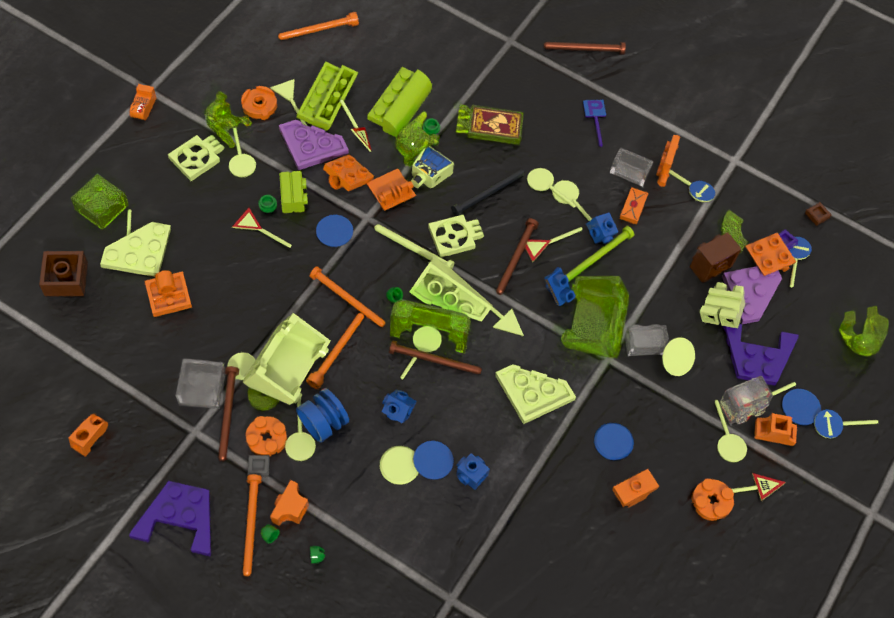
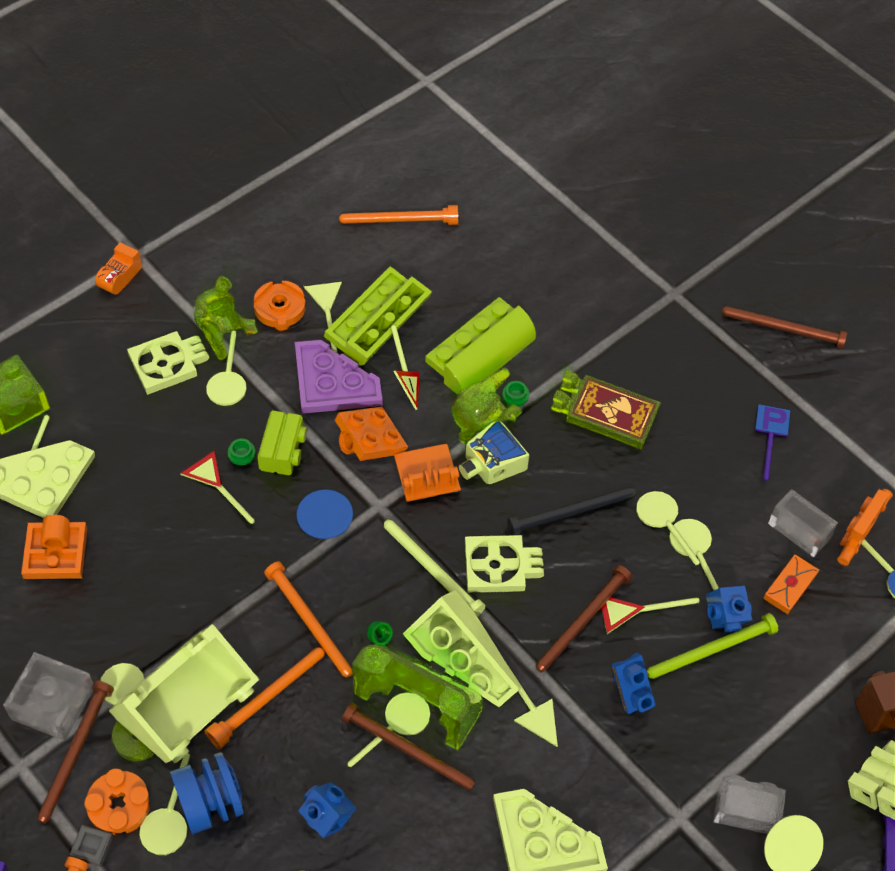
camera: 20 degrees right, 5 degrees down
(598, 316) = (682, 747): clear neon green windscreen -> none

